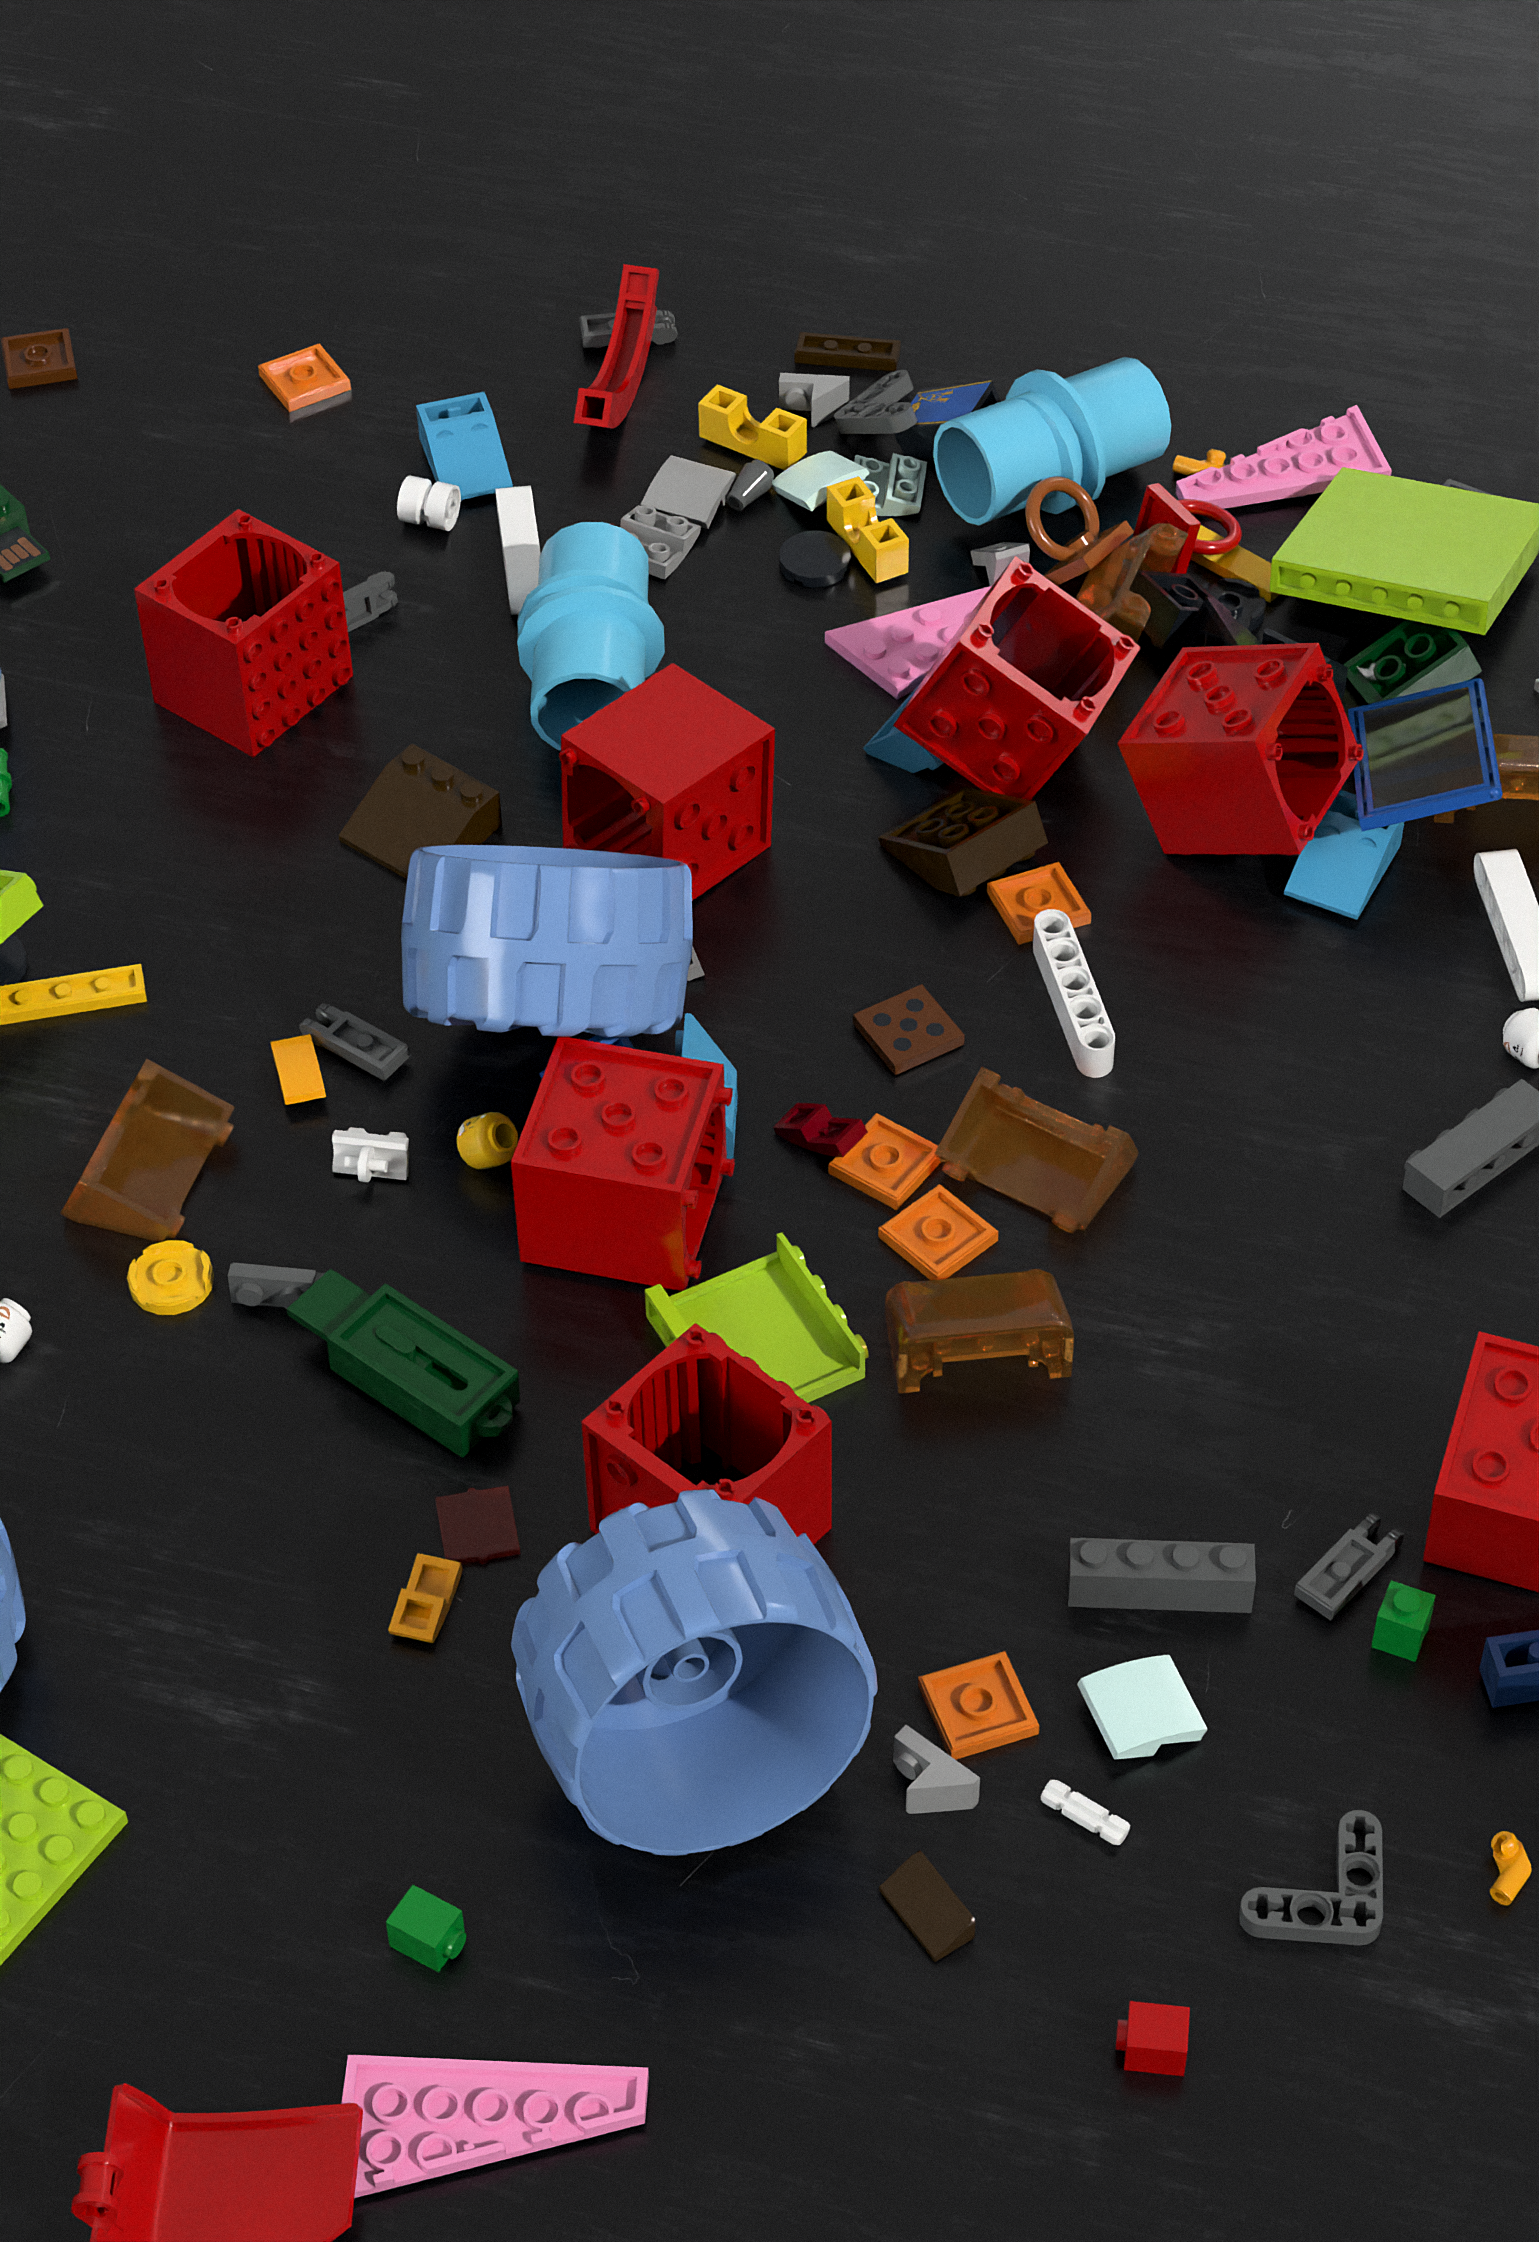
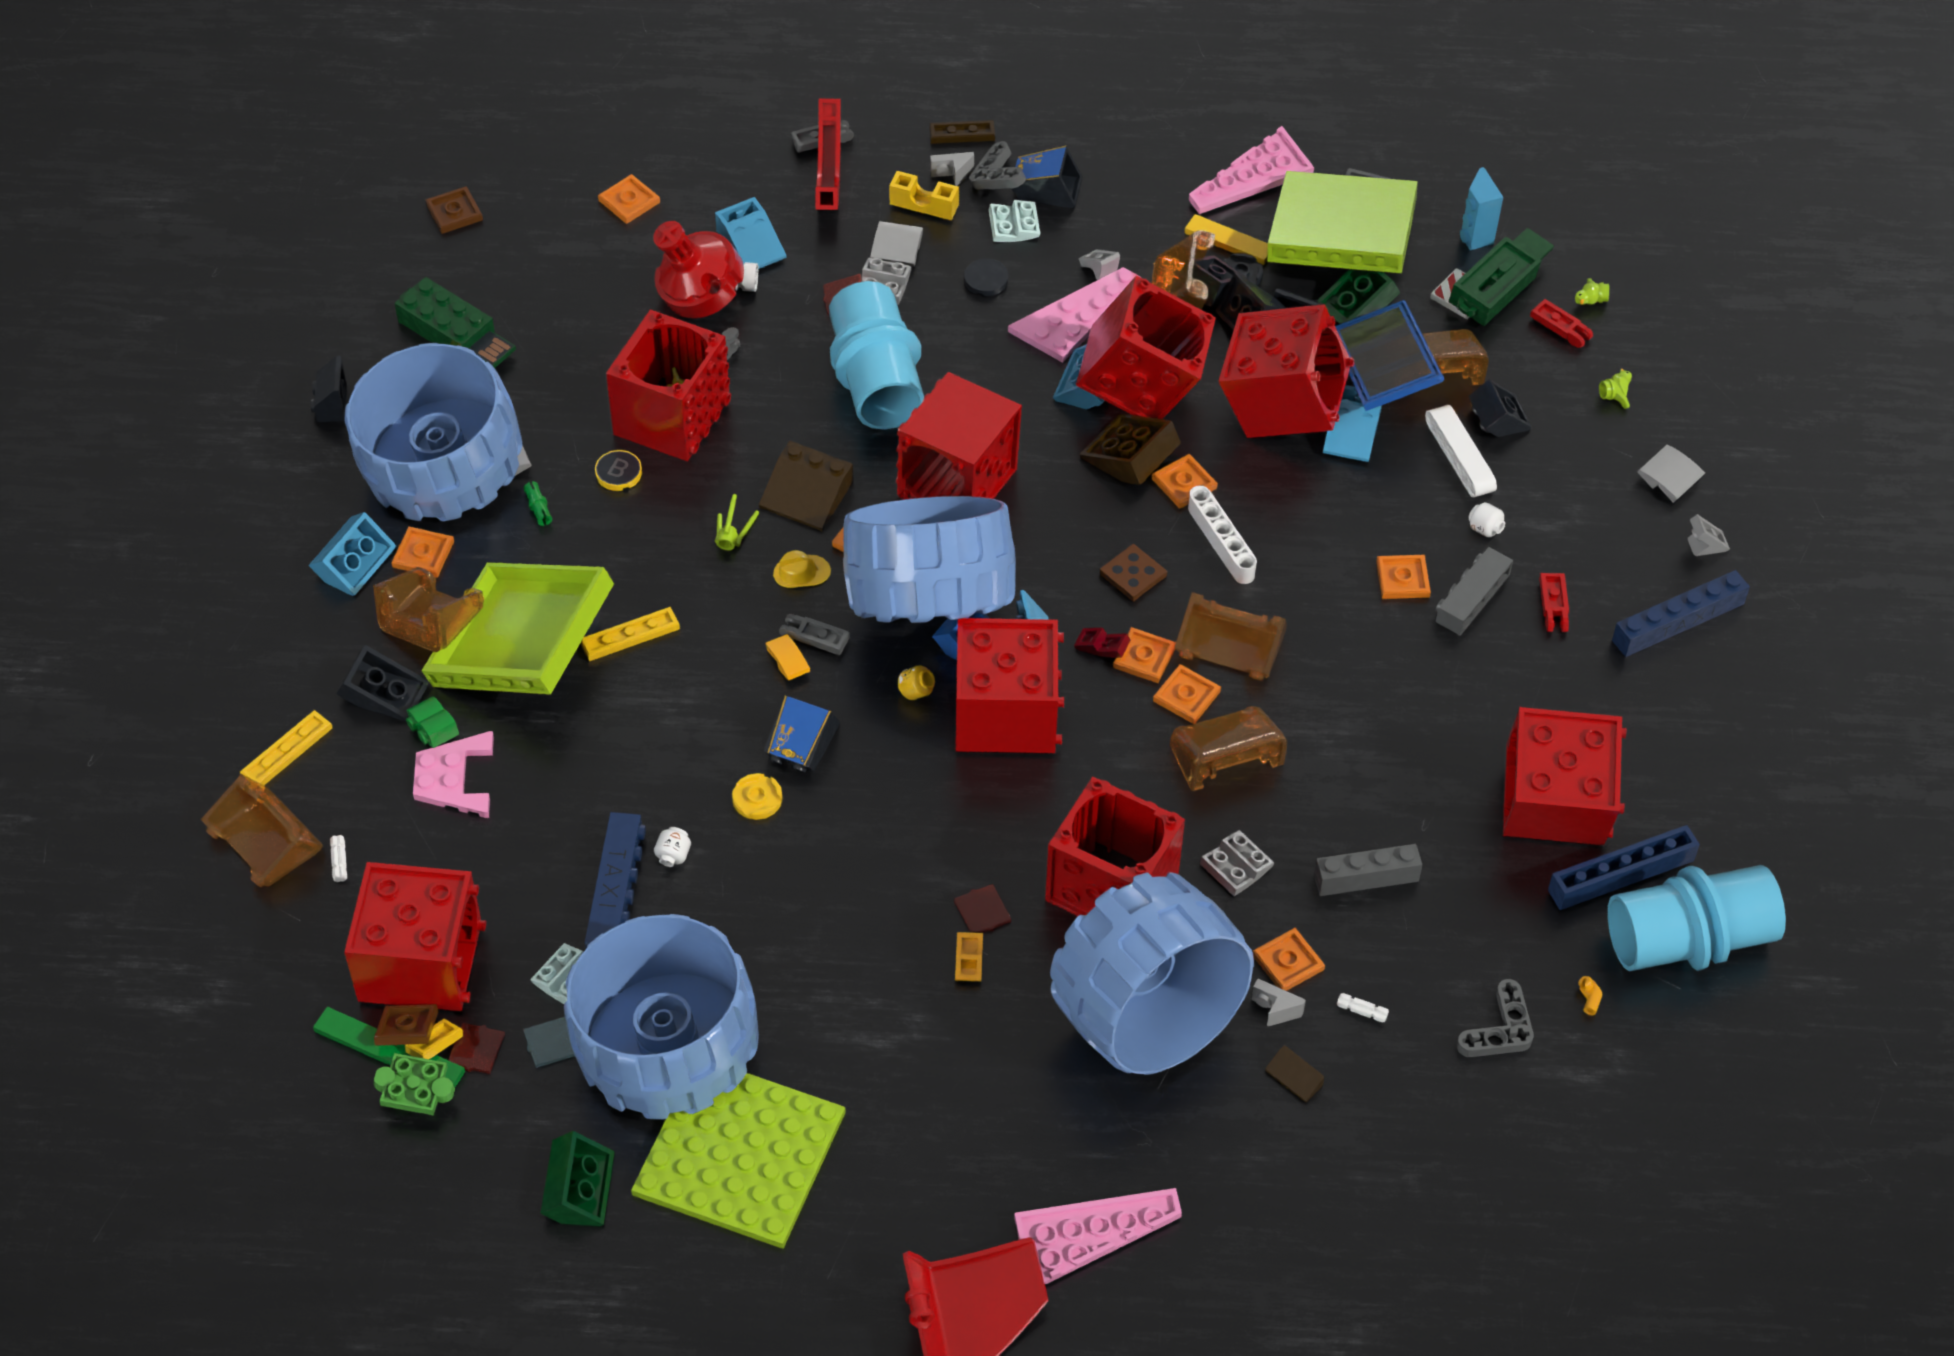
camera: 15 degrees left, 5 degrees up
(139, 753) = (618, 470): none -> tile
(149, 1156) = (720, 726): clear orange windscreen -> none
(268, 1284) = (830, 791): dark grey hinge -> none
(270, 1190) = (800, 734): none -> slope
(271, 870) = (727, 536): none -> lime plant
(356, 480) = (696, 270): none -> red piece
(364, 941) = (801, 570): none -> yellow piece
(371, 1154) = (850, 702): white hips -> none
(411, 1361) = (917, 822): dark green piece -> none
(426, 1928) = (1033, 1138): green brick -> none
(518, 542) = (806, 298): white beam -> none
(751, 483) = (932, 233): dark grey cone -> none
(774, 1317) = (1109, 755): lime panel -> none
(808, 479) = (974, 223): light aqua slope -> none
(877, 545) = (1003, 246): yellow arch -> none
(936, 1524) = (1236, 863): none -> light grey slope
(1048, 429) = (1114, 182): medium azure piece -> none
(1083, 550) = (1150, 250): dark orange tile -> none
(1141, 1706) = (1377, 944): light aqua slope -> none
(1154, 2038) = (1434, 1120): red brick -> none
(1163, 508) = (1193, 219): red tile -> none
(1190, 466) = (1195, 182): light orange arm -> none
(1347, 1567) = (1464, 847): dark grey hinge -> none
(1365, 1107) = (1403, 576): none -> orange tile
(1403, 1621) = (1503, 871): green brick -> none

